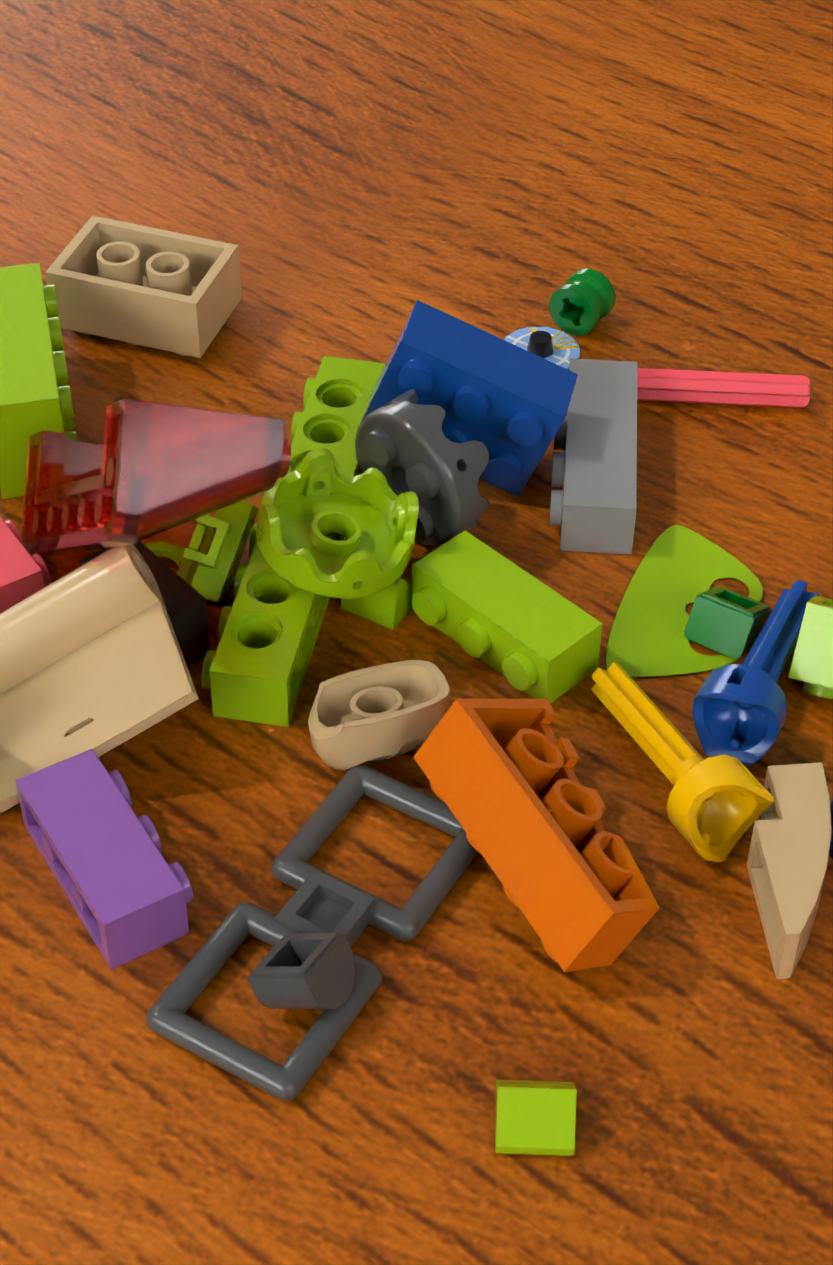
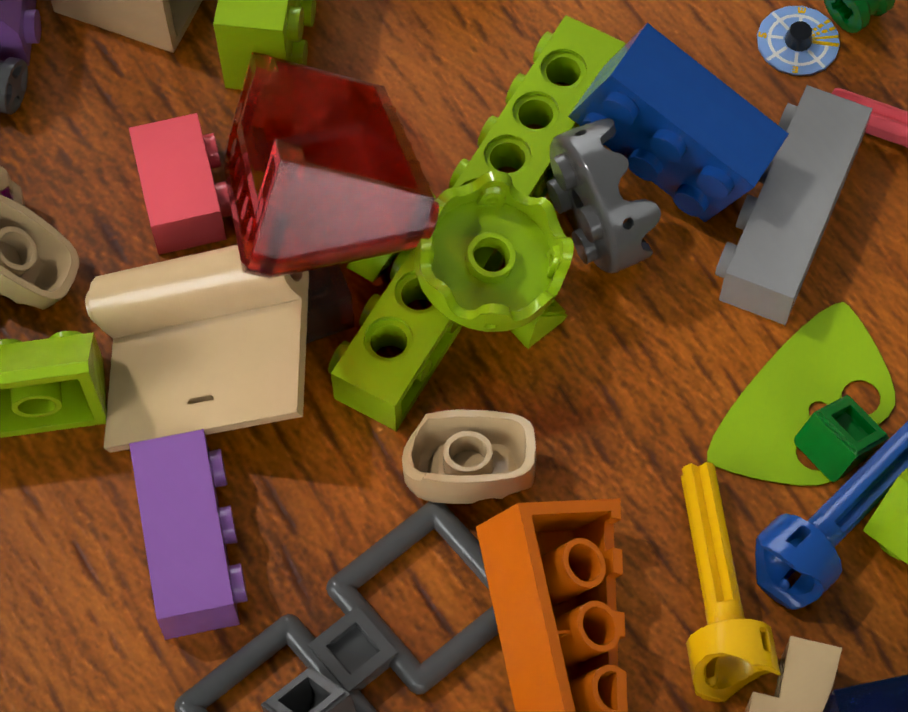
camera: 20 degrees right, 20 degrees up
(506, 617) = (626, 378): lime brick -> none

